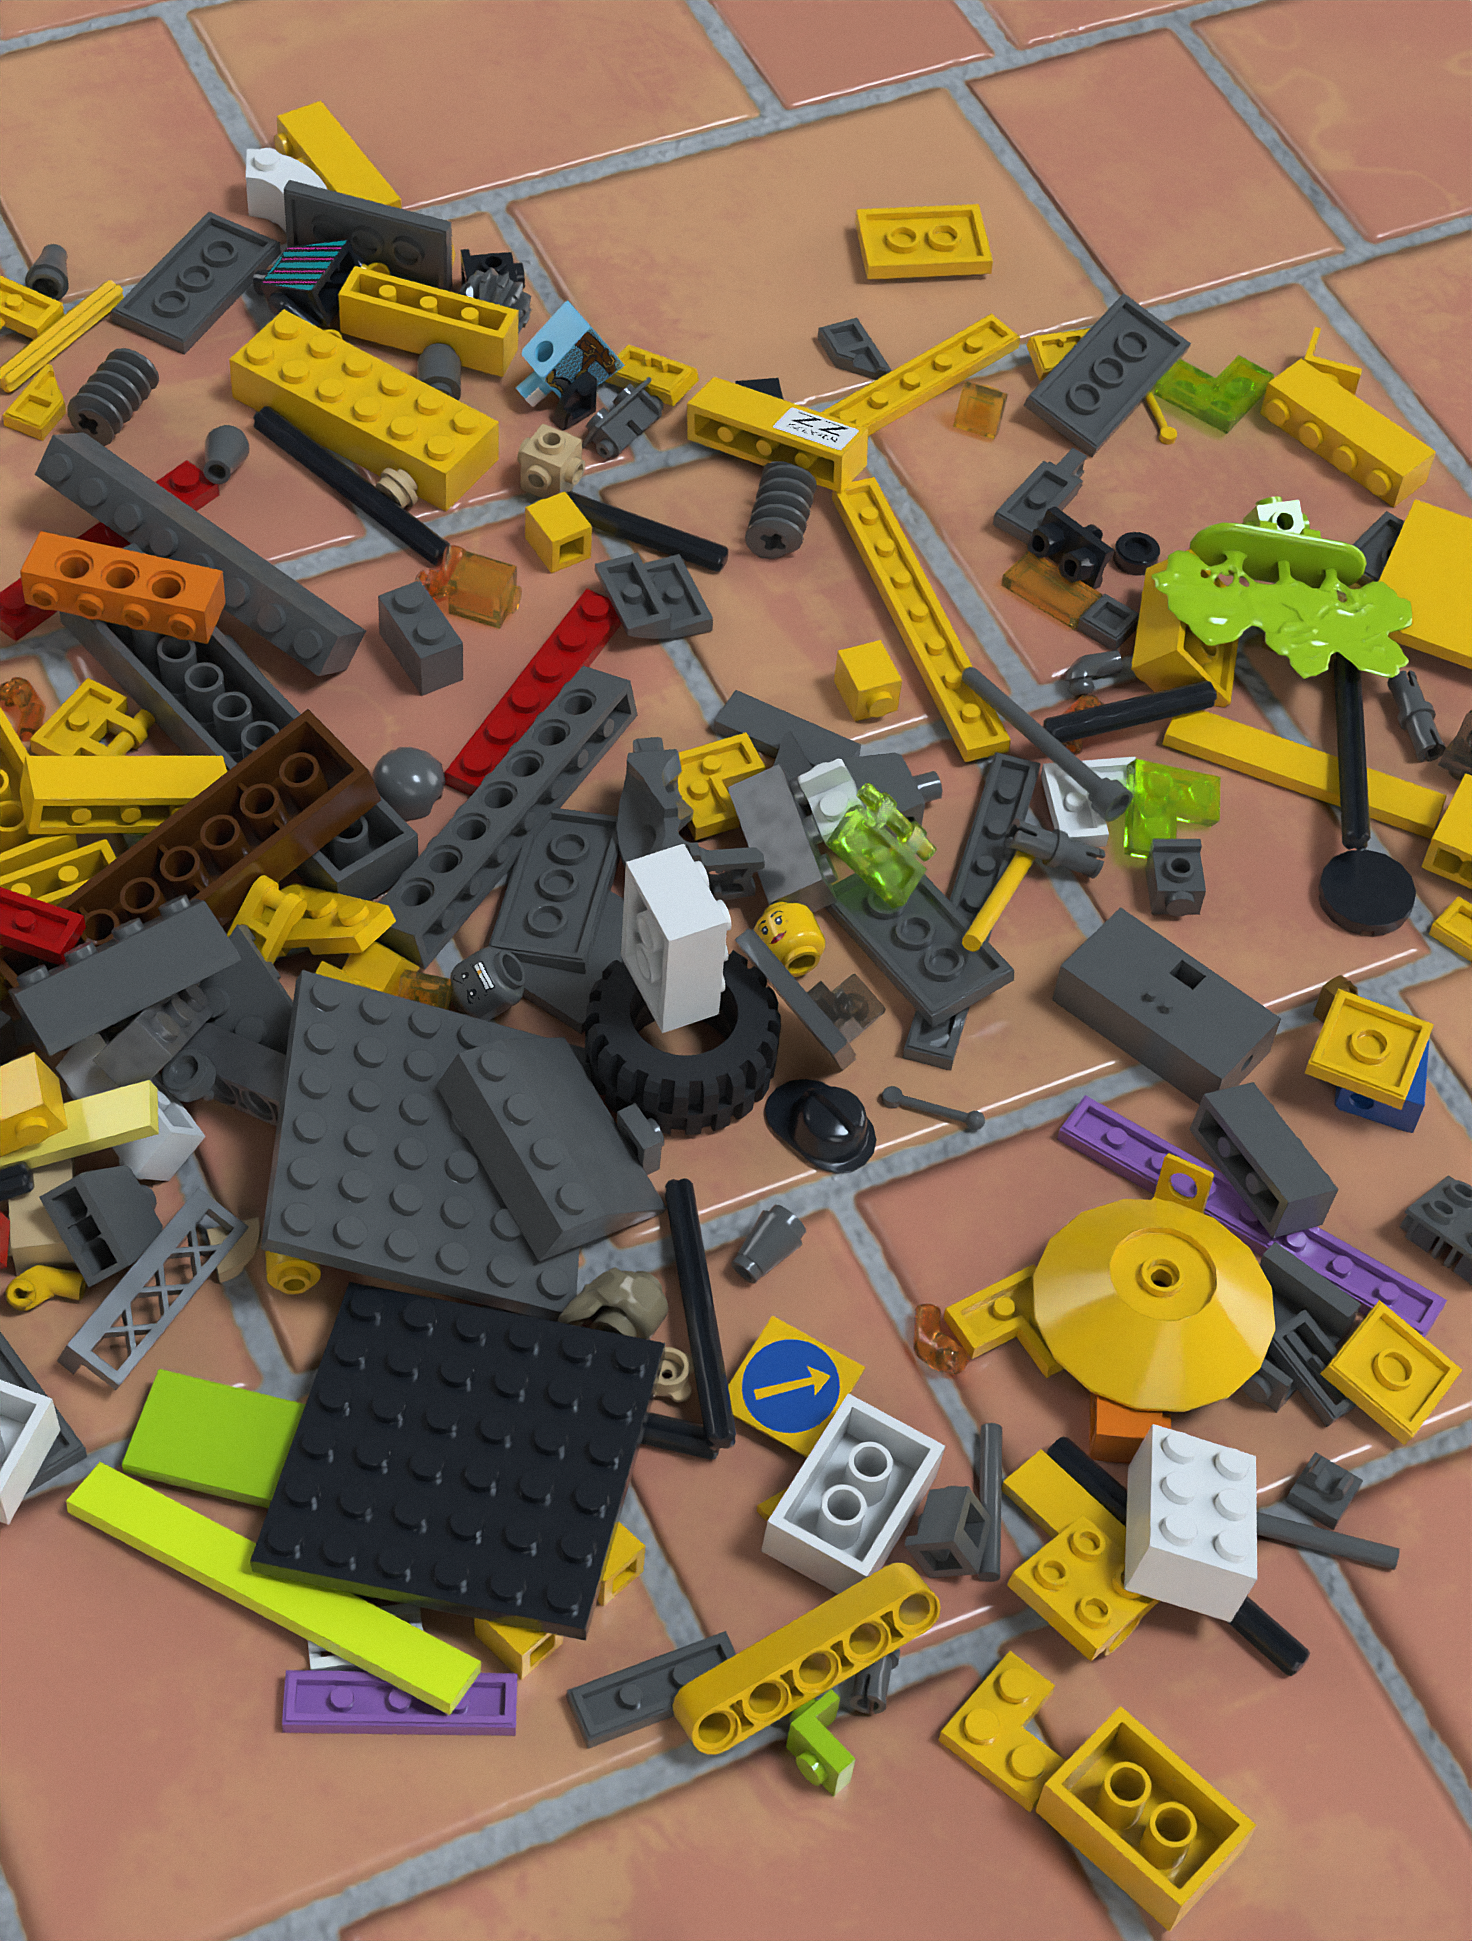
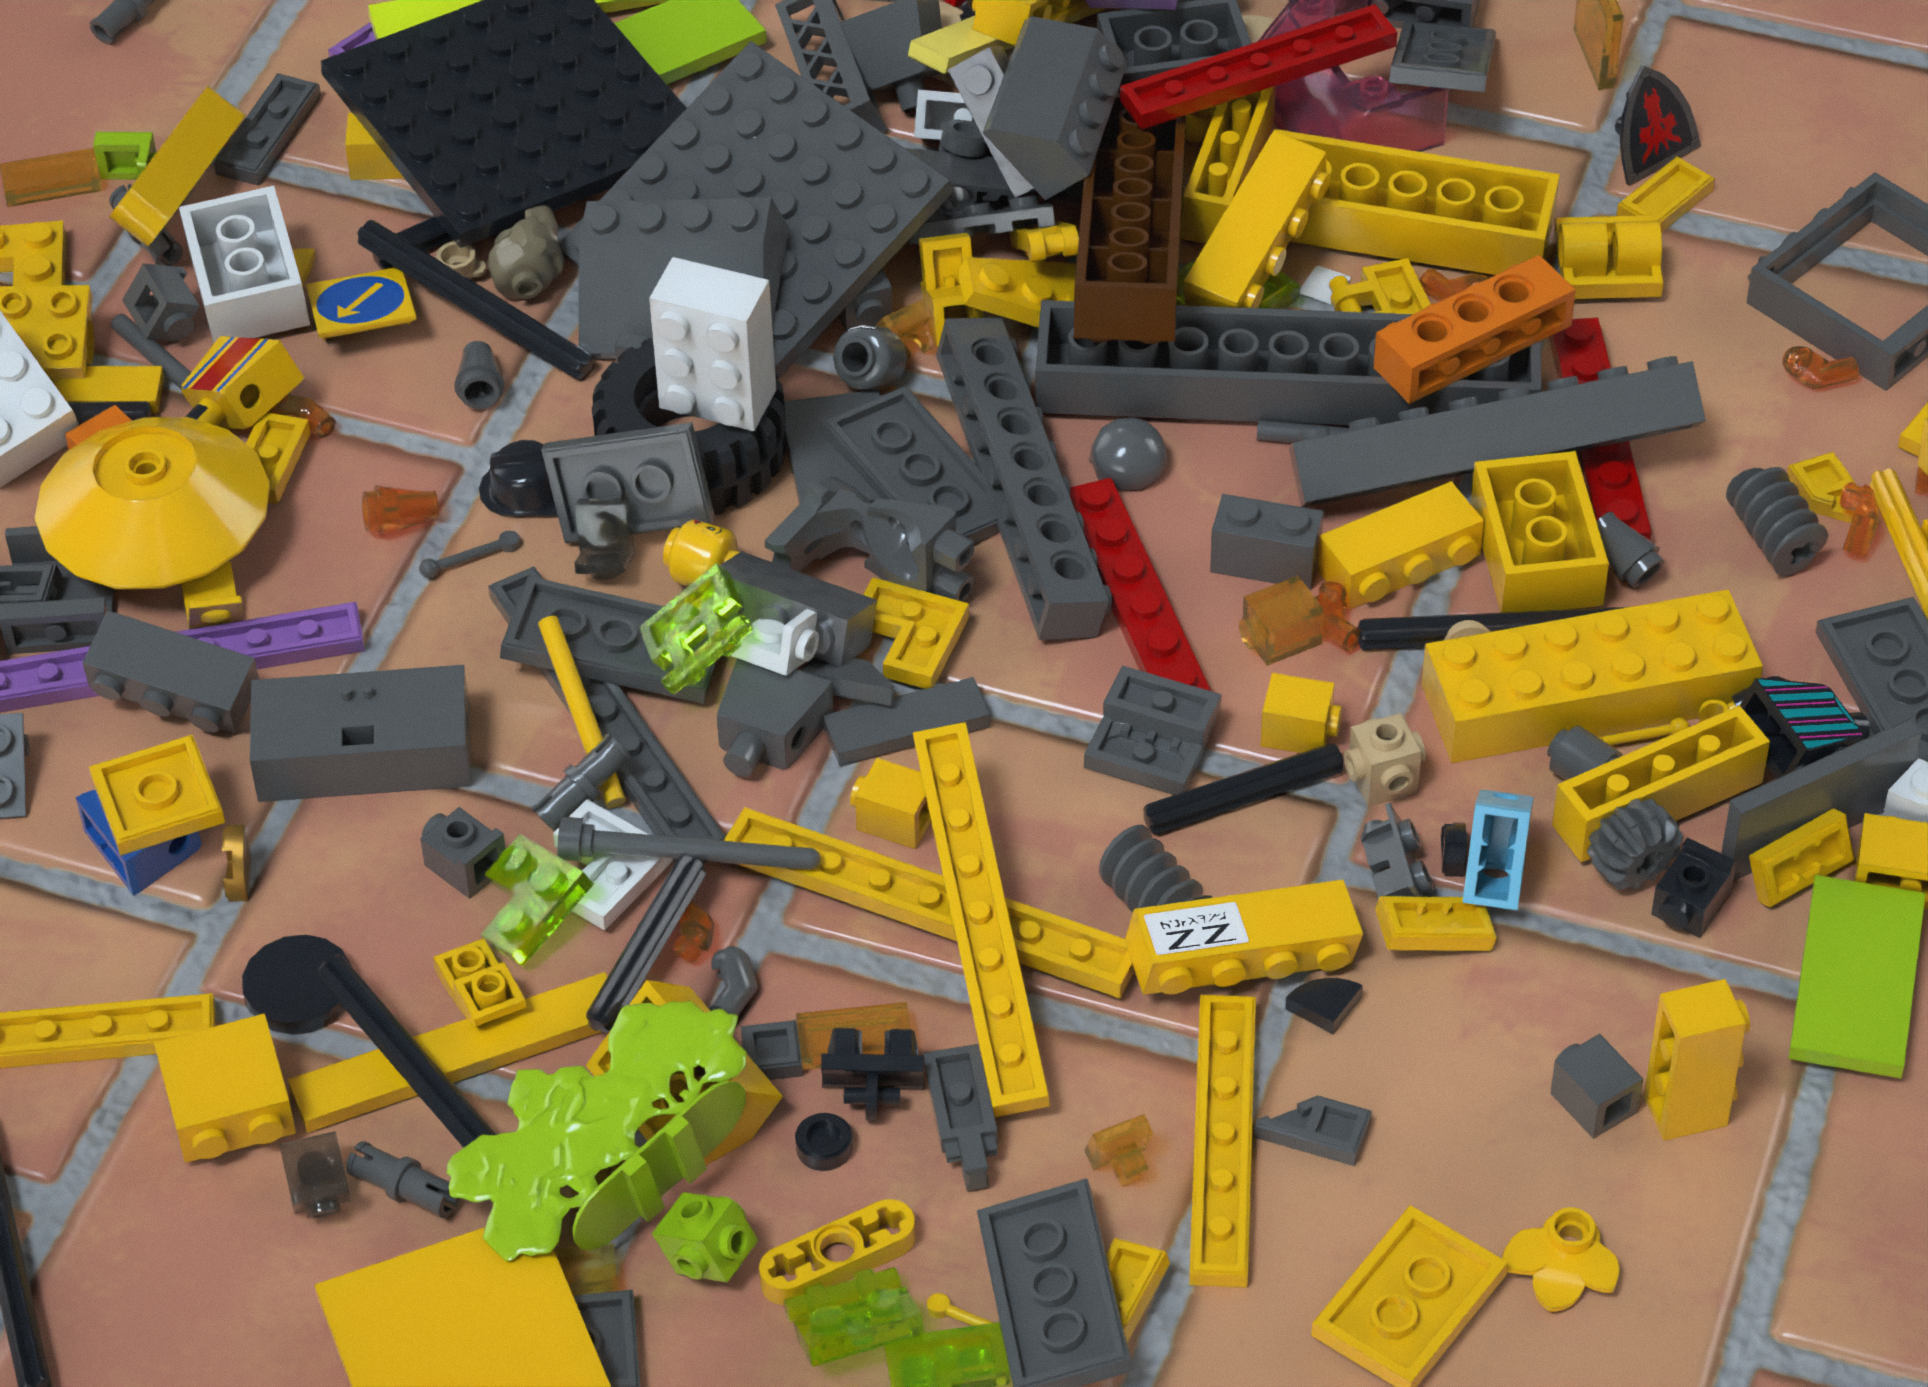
camera: 140 degrees right, 5 degrees down
(63, 355) = (1864, 520): none -> clear orange arm
(269, 488) = (1539, 533): none -> yellow brick
(341, 567) = (1401, 544): none -> yellow brick
(480, 180) = (1857, 976): none -> lime tile
(650, 169) = (1695, 1058): none -> yellow brick
(689, 241) = (1596, 1085): none -> dark grey brick
(814, 204) = (1563, 1266): none -> yellow plate
(897, 1815) = (50, 177): none -> clear yellow tile
(911, 558) = (981, 921): none -> yellow plate
(955, 1178) = (397, 508): none -> clear orange cone
(975, 1378) = (240, 381): none -> yellow torso
(1185, 478) = (847, 1230): none -> yellow beam
(1235, 434) = (853, 1316): none -> clear neon green plate
(1254, 786) = (478, 982): none -> yellow slope

